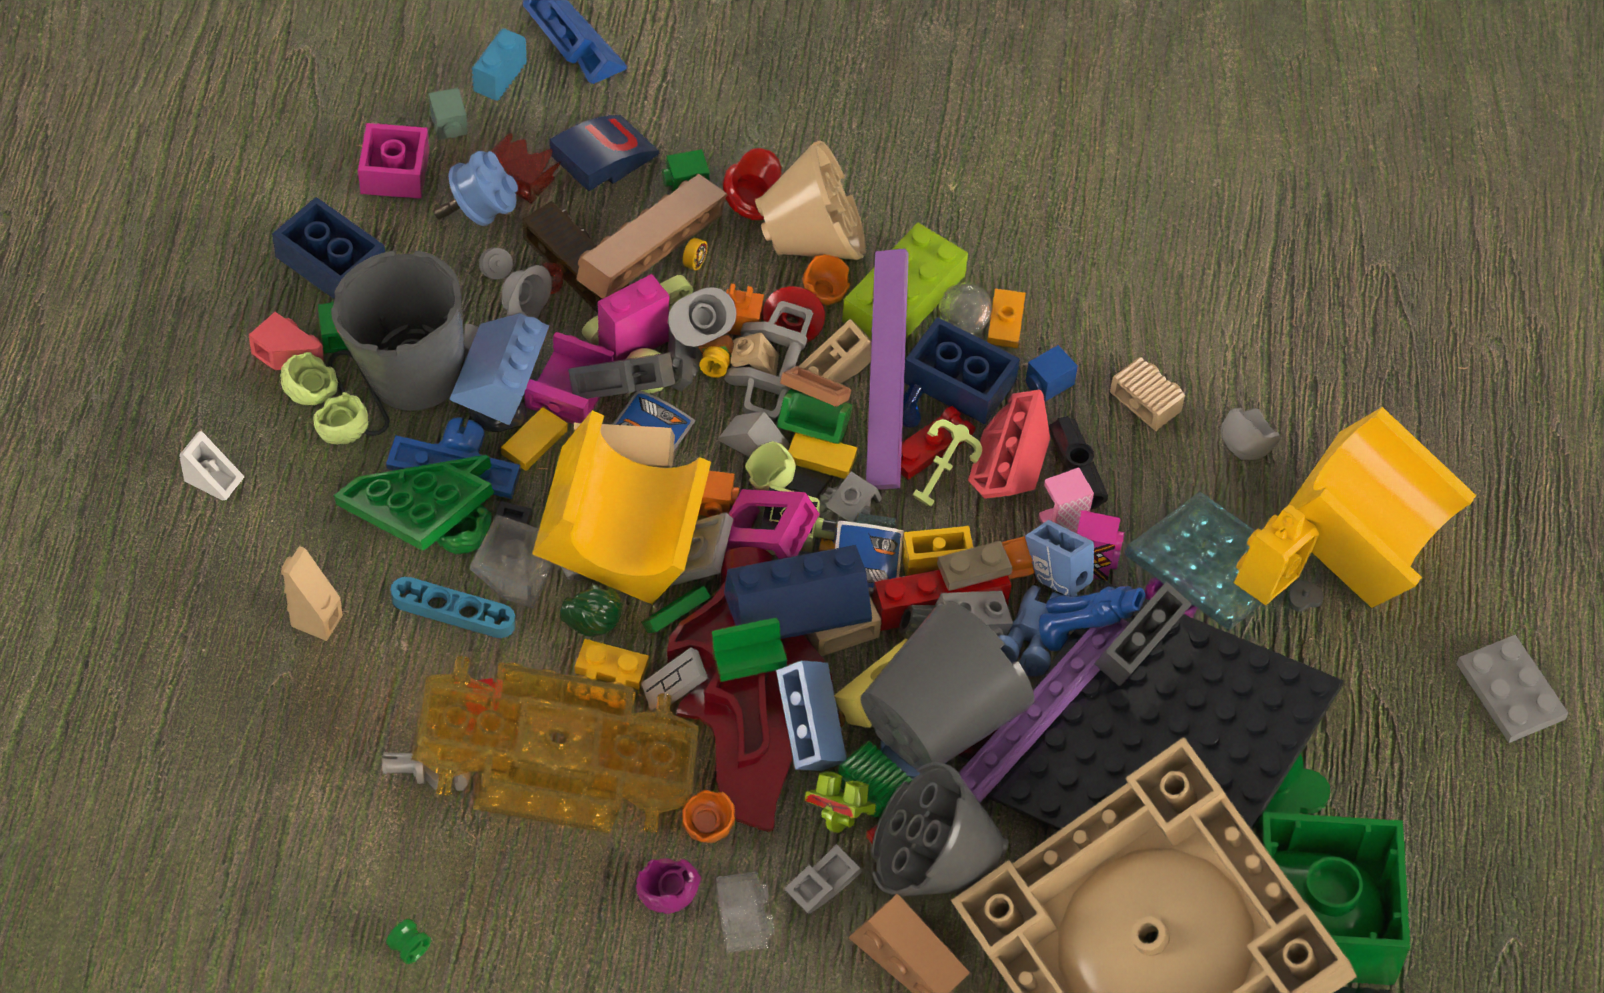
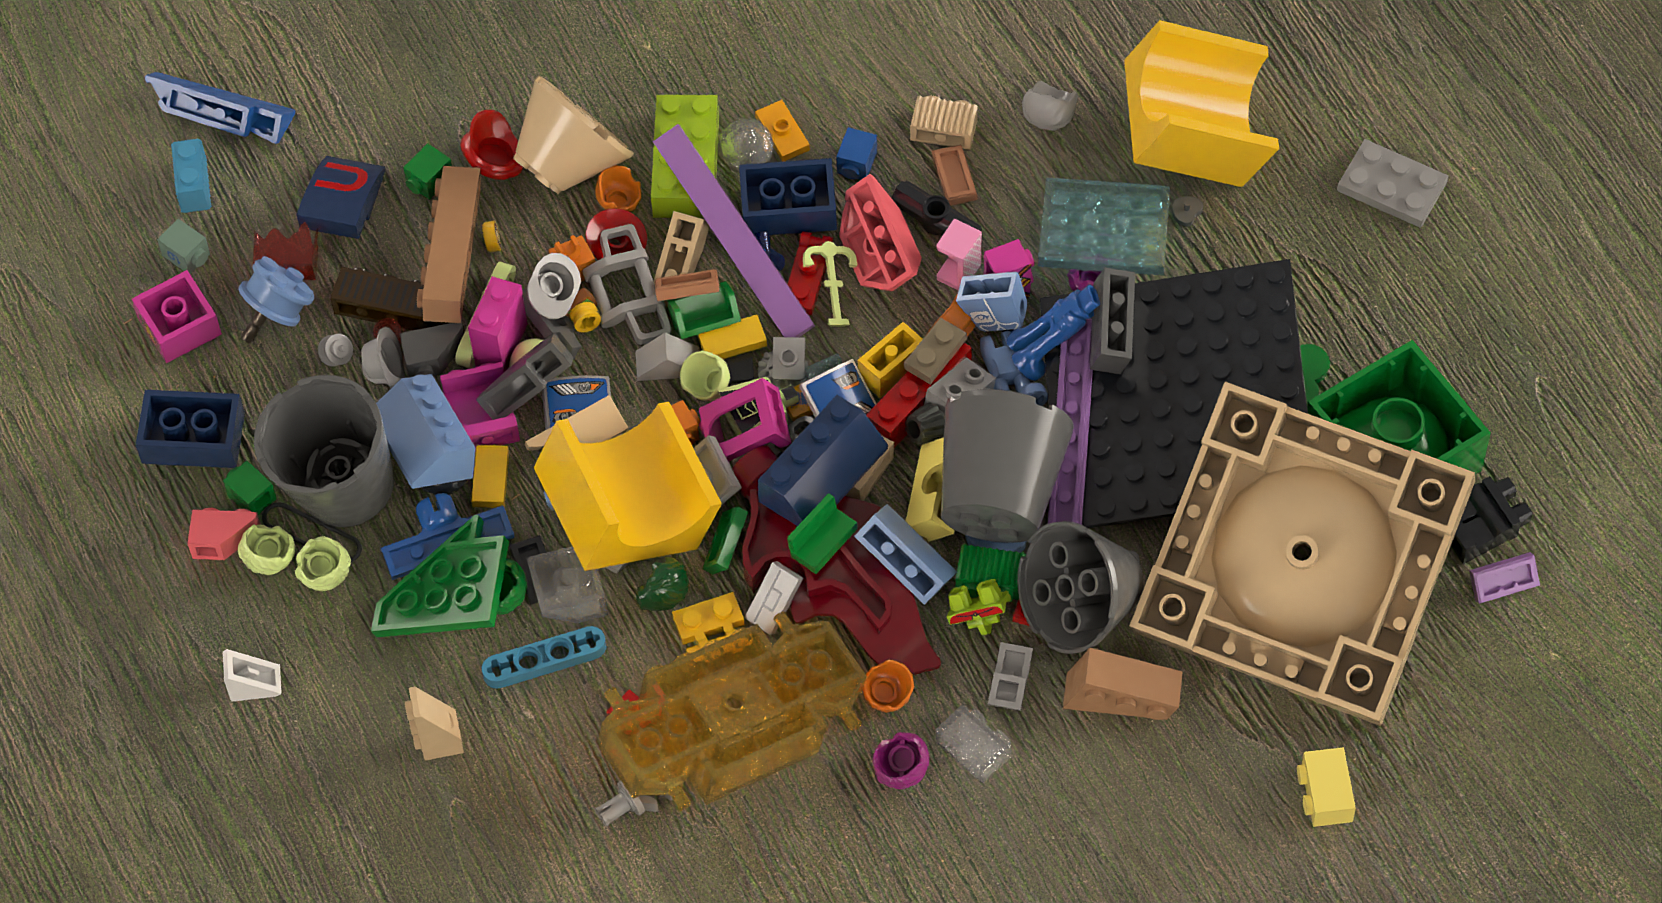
camera: 30 degrees left, 5 degrees up
(566, 308) = (431, 348): none -> dark grey slope
(755, 351) = (612, 289): tan bracket -> none
(1123, 442) = (954, 175): none -> nougat tile
(1276, 555) = (1156, 191): yellow hinge -> none

